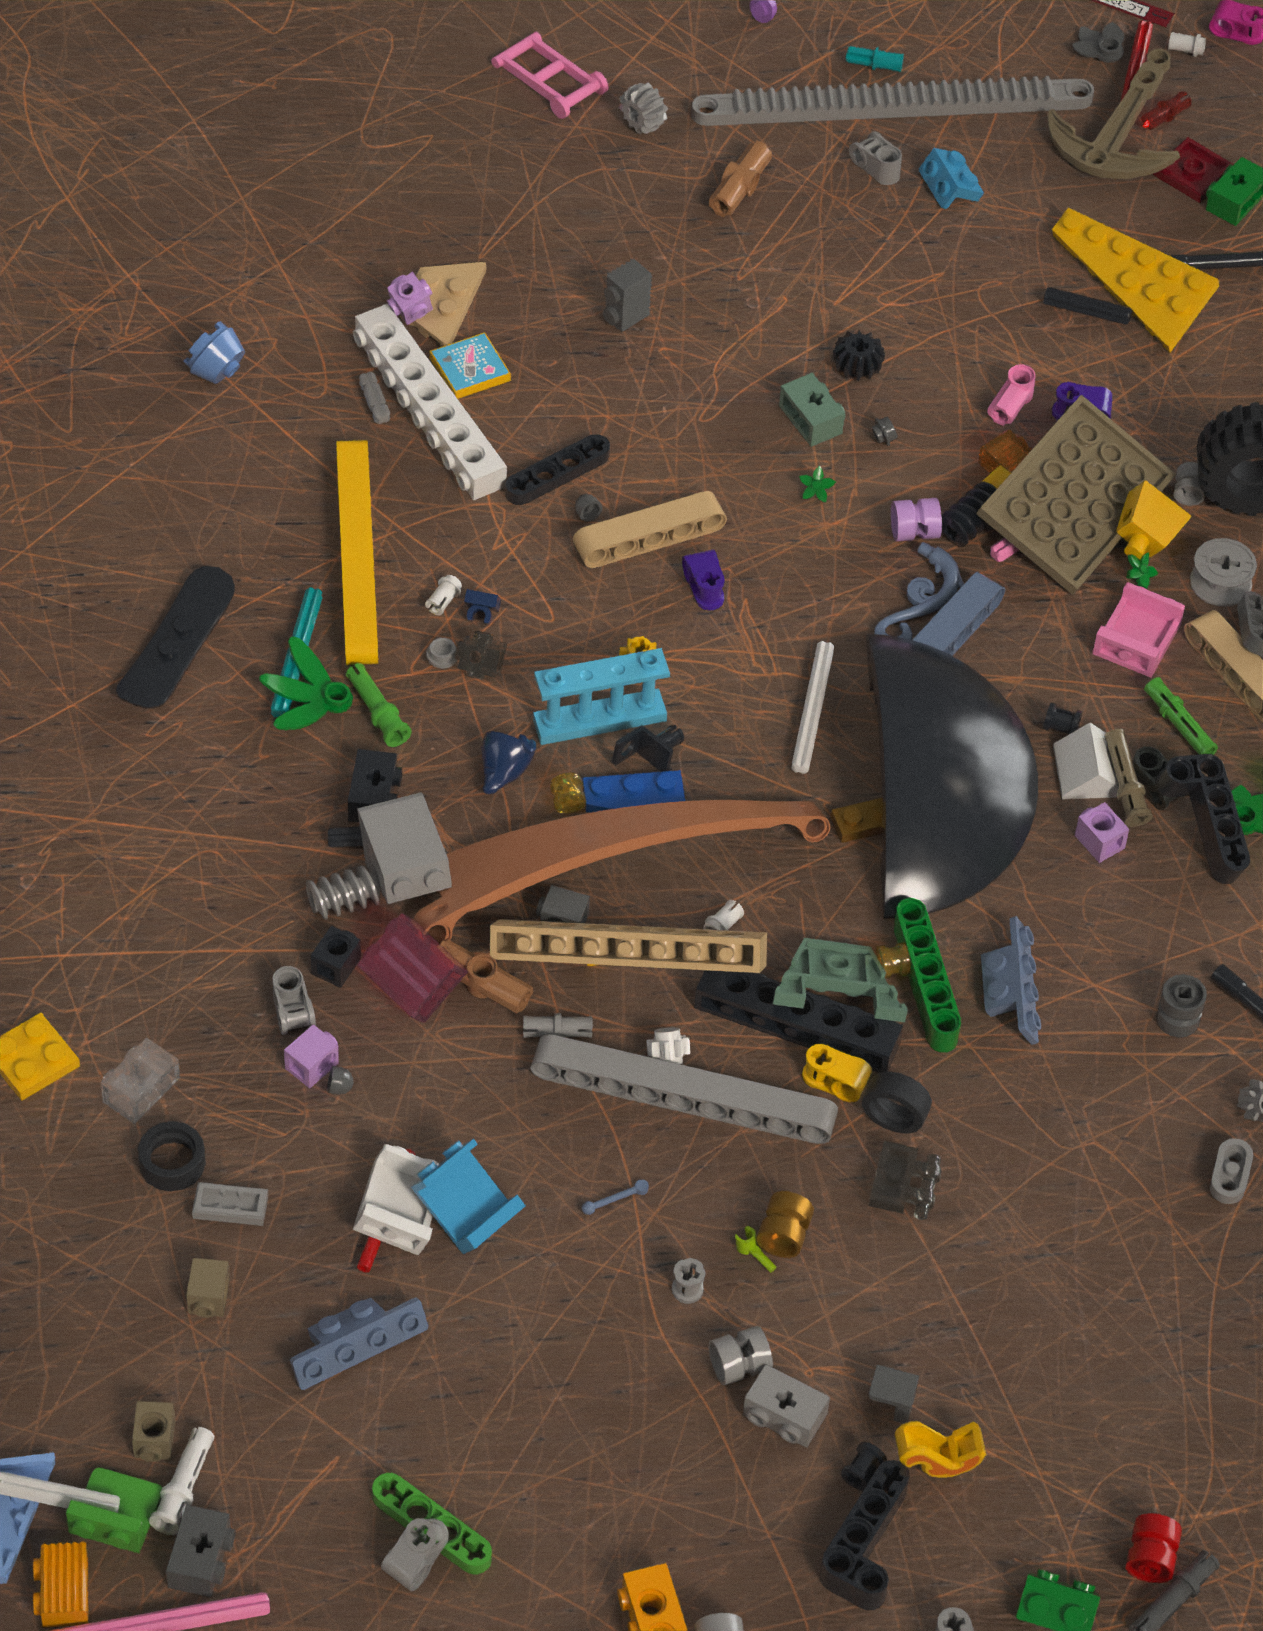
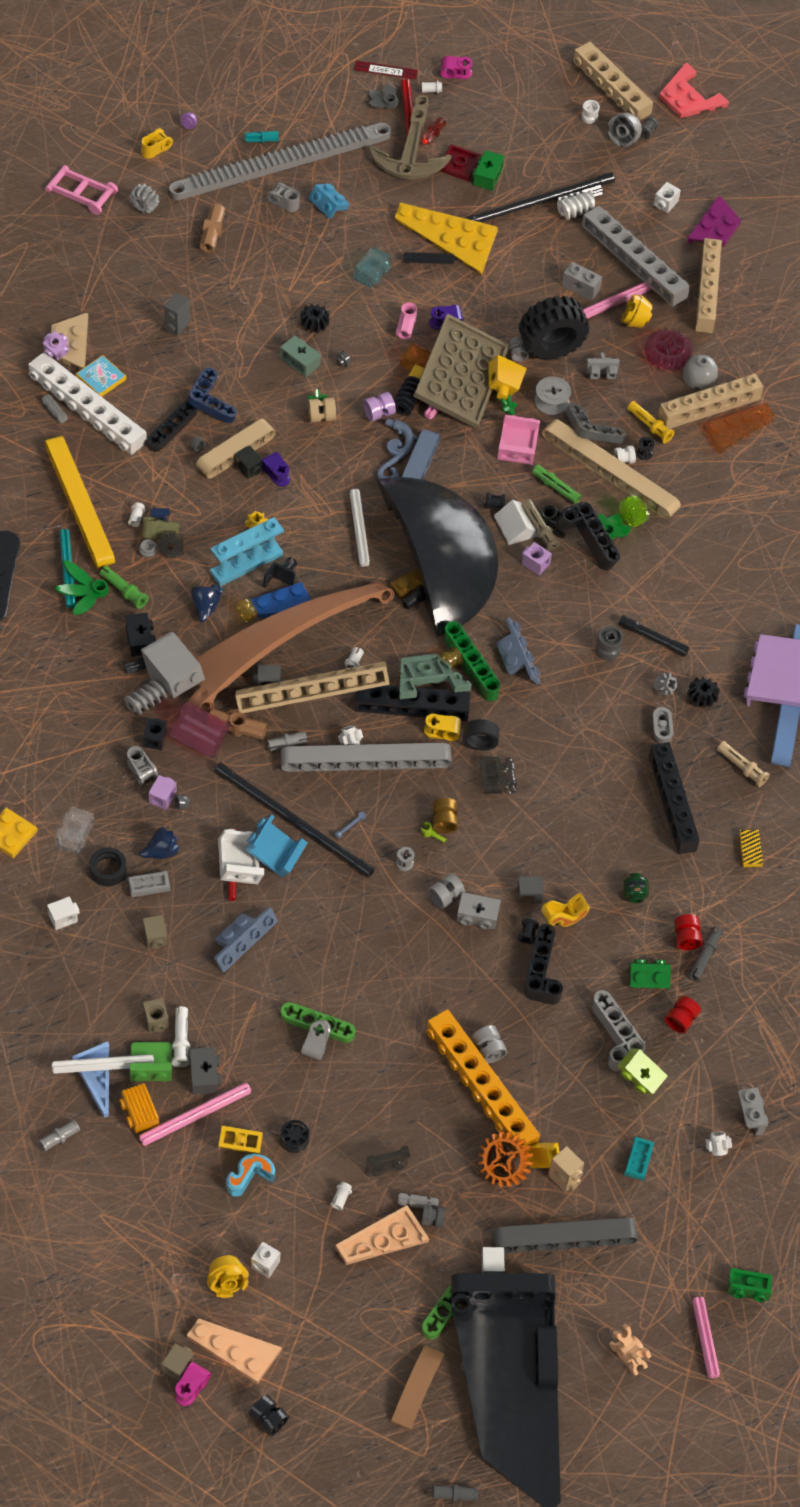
camera: 20 degrees left, 5 degrees up
(65, 1213) = (63, 913): none -> white brick
(275, 1144) = (161, 845): none -> dark blue hat
(463, 620) = (154, 527): none -> olive piece
(603, 1266) = (230, 775): none -> black piece
(627, 432) = (203, 395): none -> dark blue beam
(662, 556) = (249, 462): none -> pearl dark grey brick
(693, 30) = (154, 144): none -> yellow piece
(827, 504) = (328, 409): none -> tan wheel
(863, 845) = (416, 596): none -> black axle
(984, 298) = (372, 267): none -> clear light blue brick
(1085, 1443) = (636, 888): none -> dark green head
(1208, 1304) = (674, 798): none -> black brick

